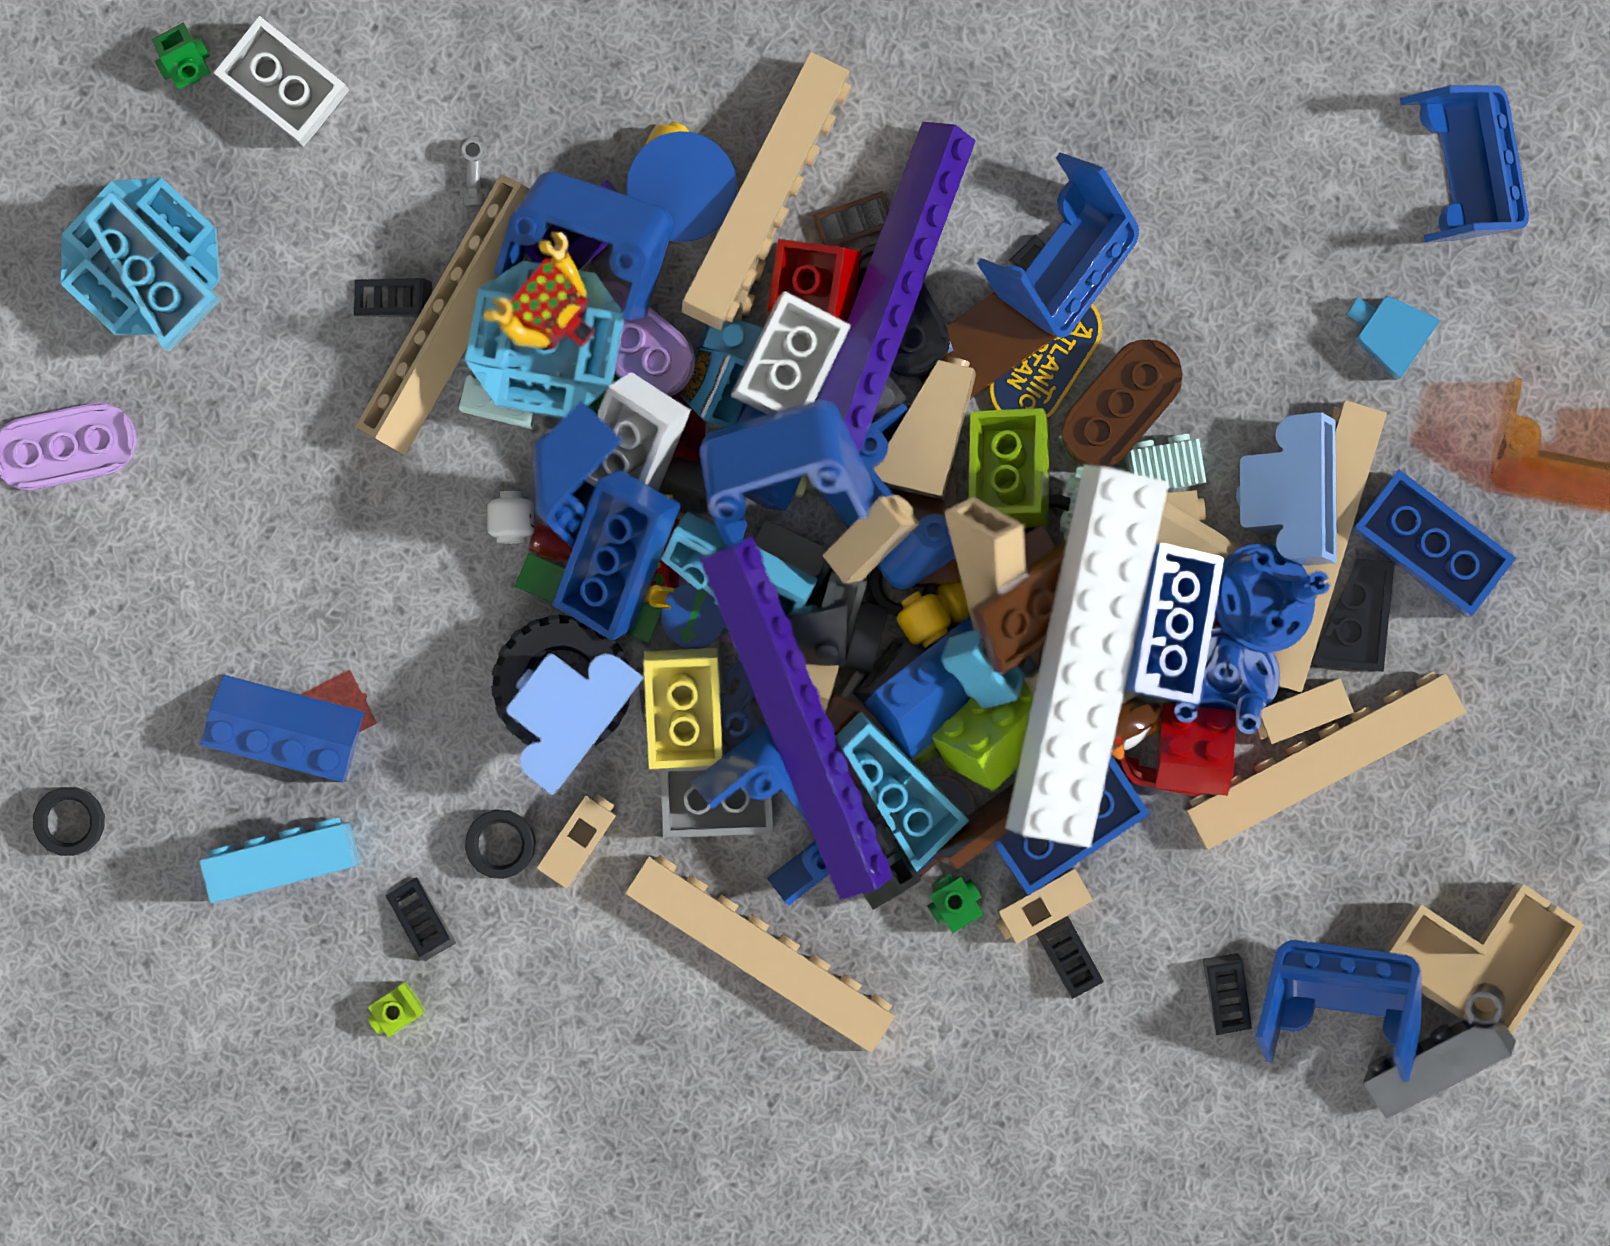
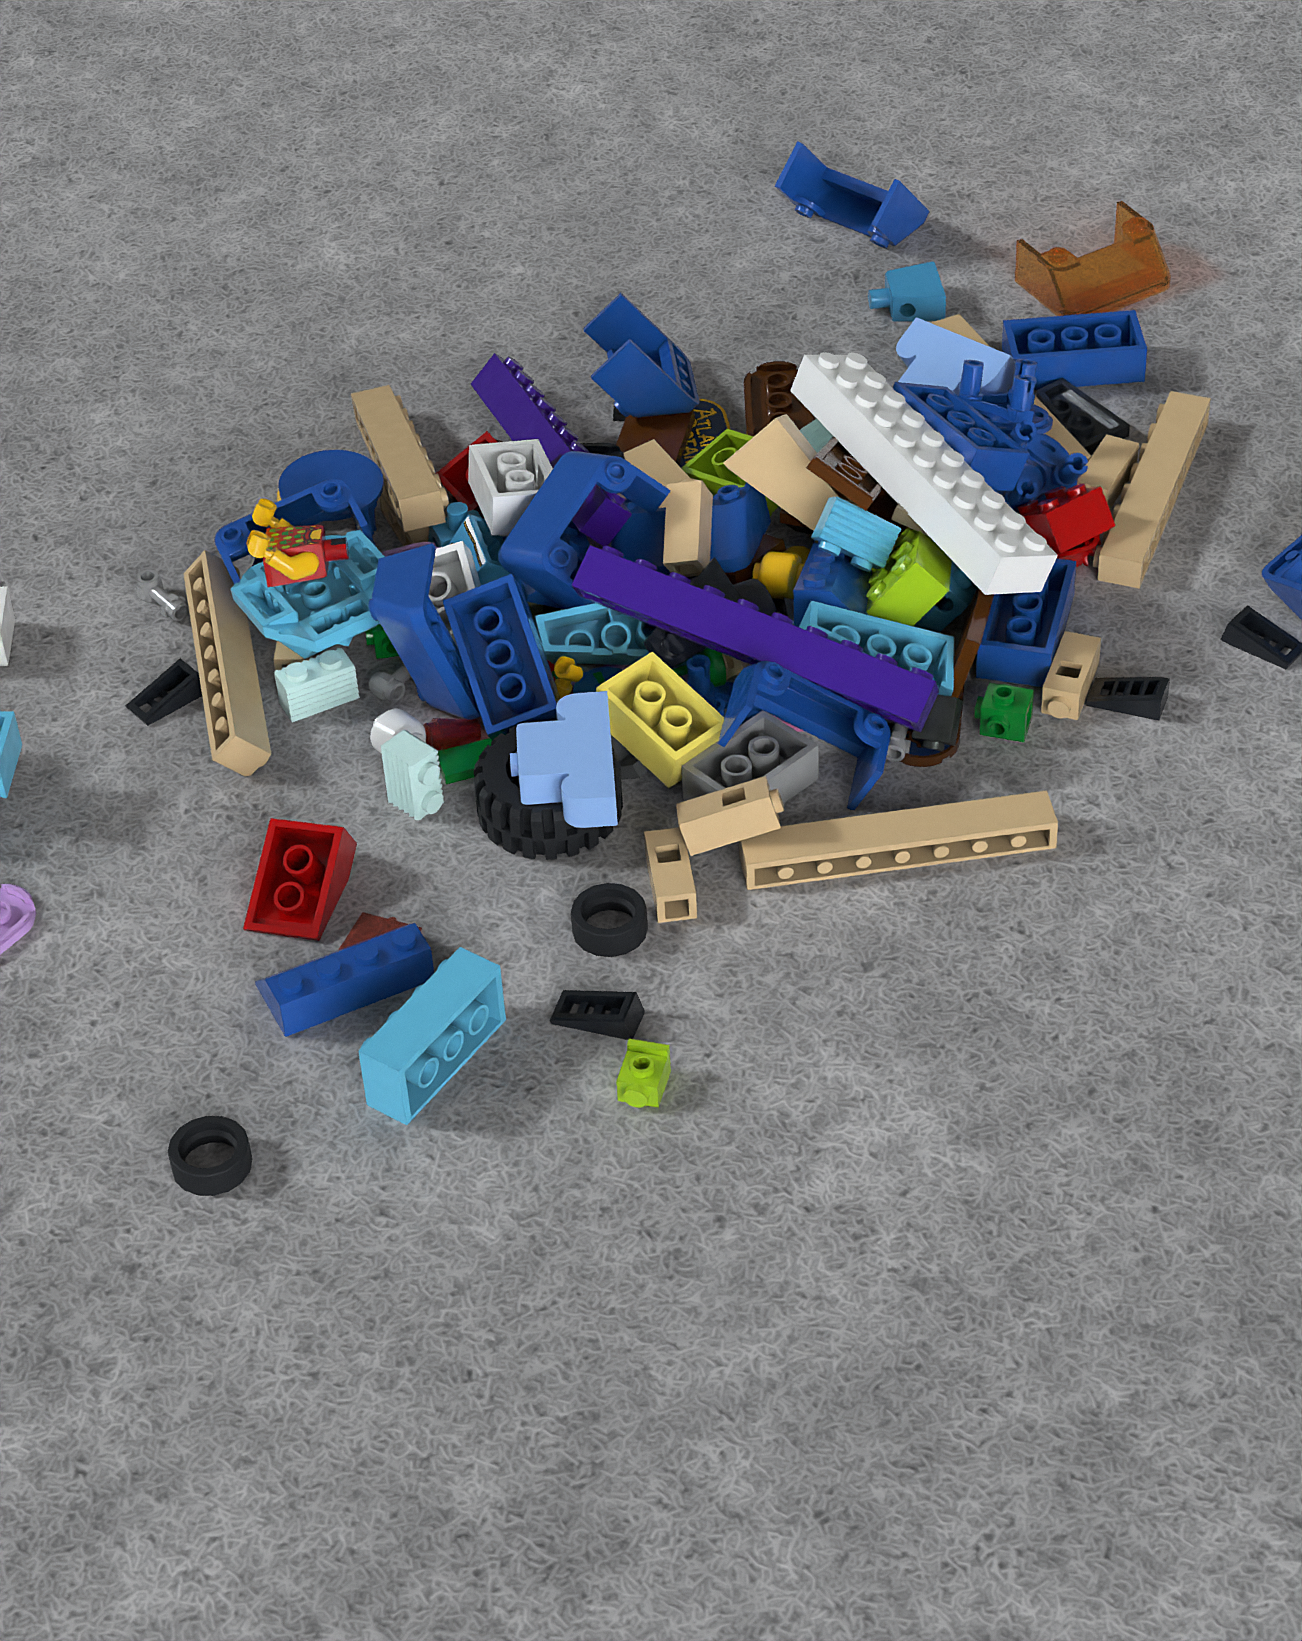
camera: 40 degrees left, 45 degrees down
(324, 608) = (299, 878): none -> red slope
(477, 585) = (412, 775): none -> light aqua brick
(645, 848) = (729, 815): none -> tan brick

